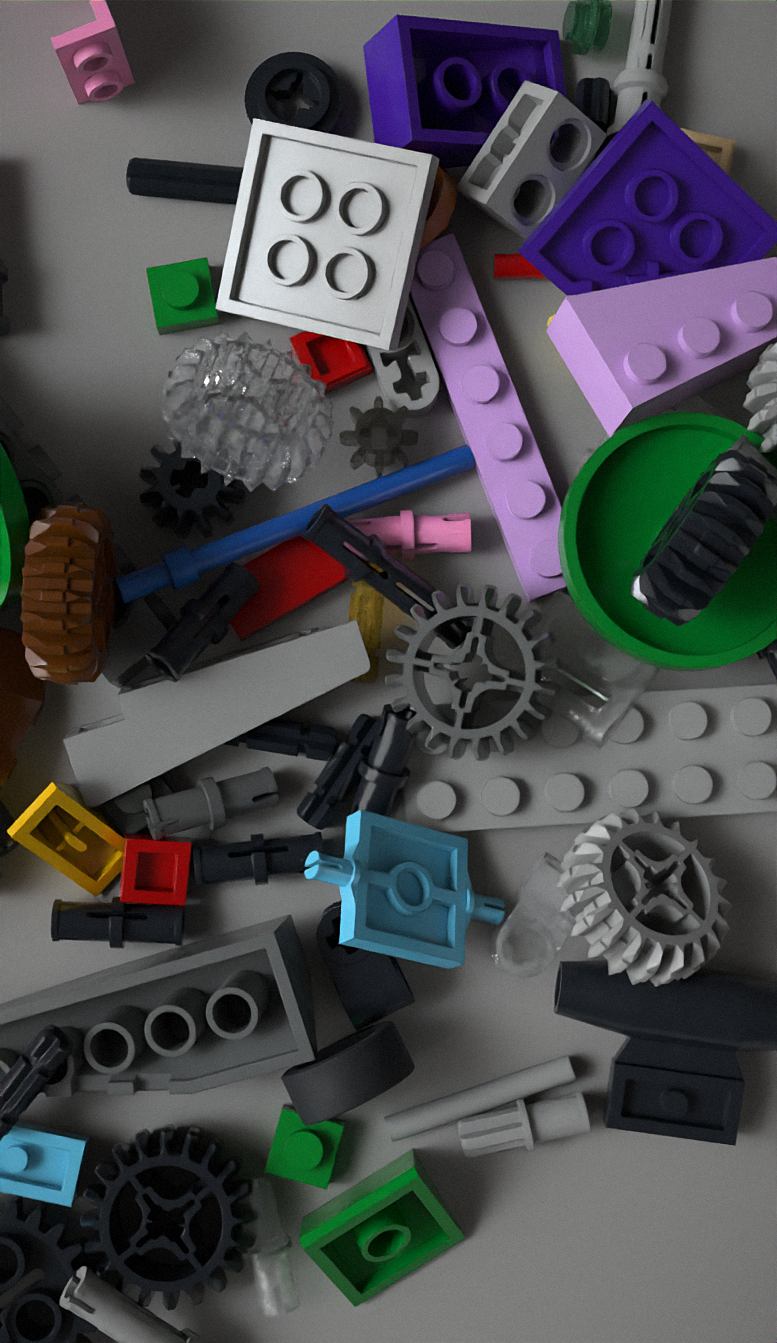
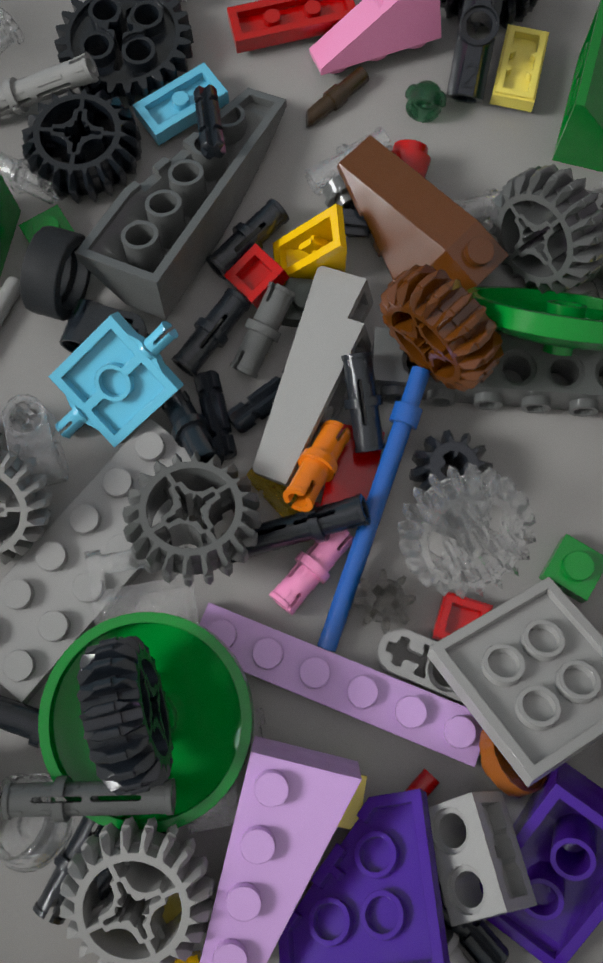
camera: 135 degrees right, 10 degrees down
(310, 606) = (317, 466): none -> orange pin

